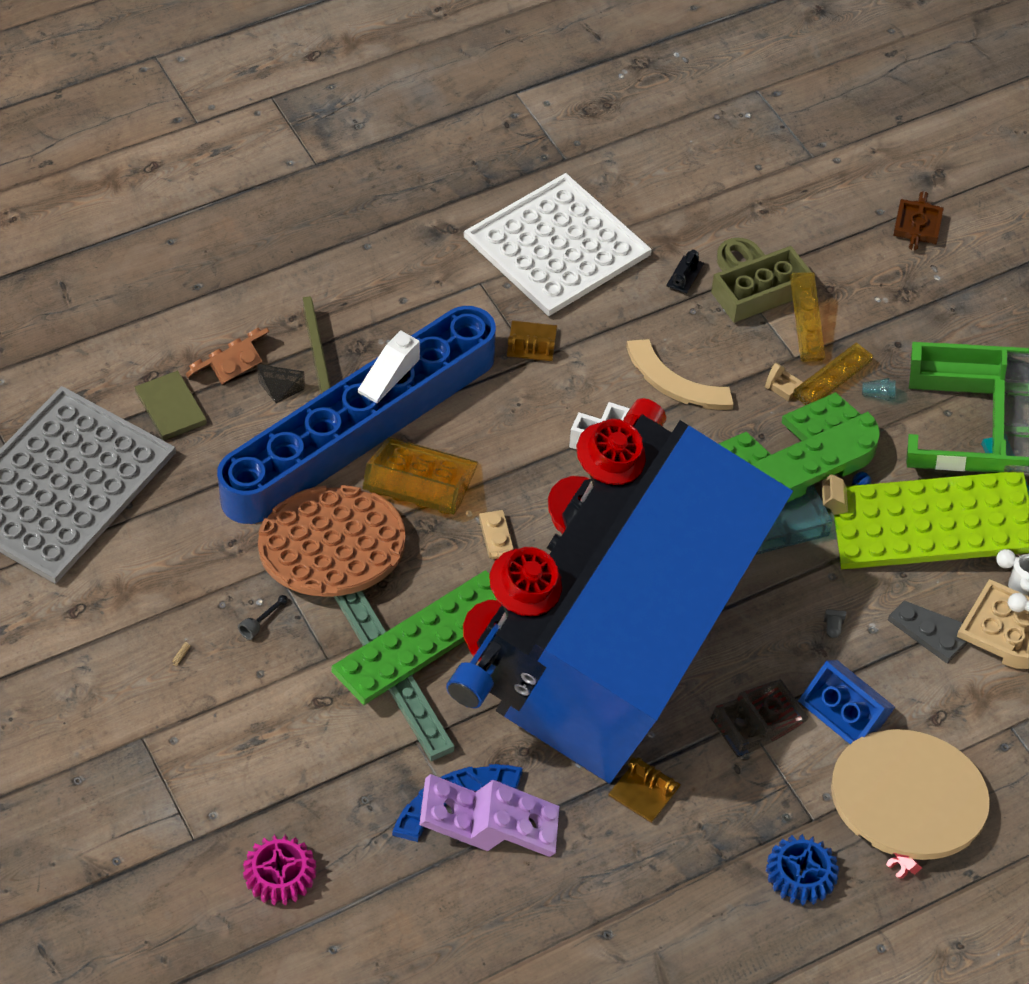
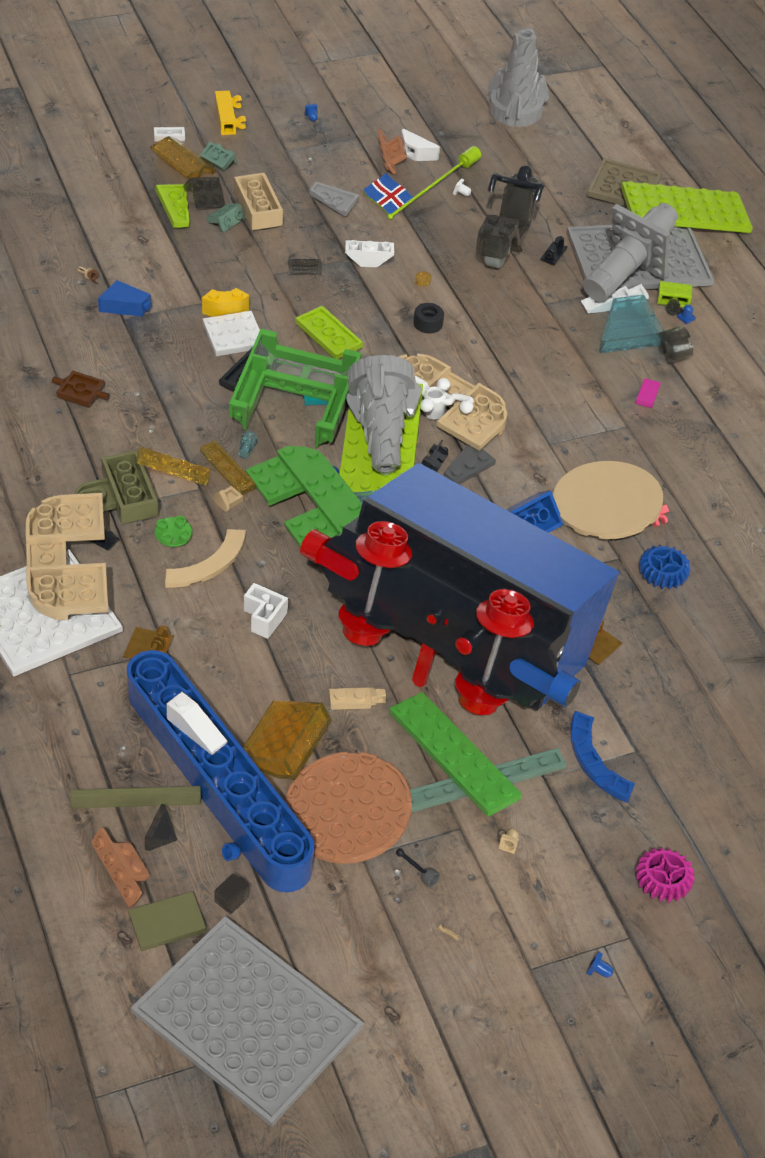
camera: 85 degrees left, 5 degrees down
(144, 802) = (600, 967): none -> blue piece
(205, 450) = (231, 893): none -> clear smoke brick
(312, 705) = (509, 841): none -> tan piece
(489, 815) = (625, 730): lavender bracket -> none
(583, 241) = (51, 583): none -> tan plate
(711, 338) = (173, 531): none -> bright green dish
(835, 494) = (354, 478): tan piece -> none
(936, 588) = (437, 456): none -> black hinge
(961, 483) = (378, 397): none -> light grey cone

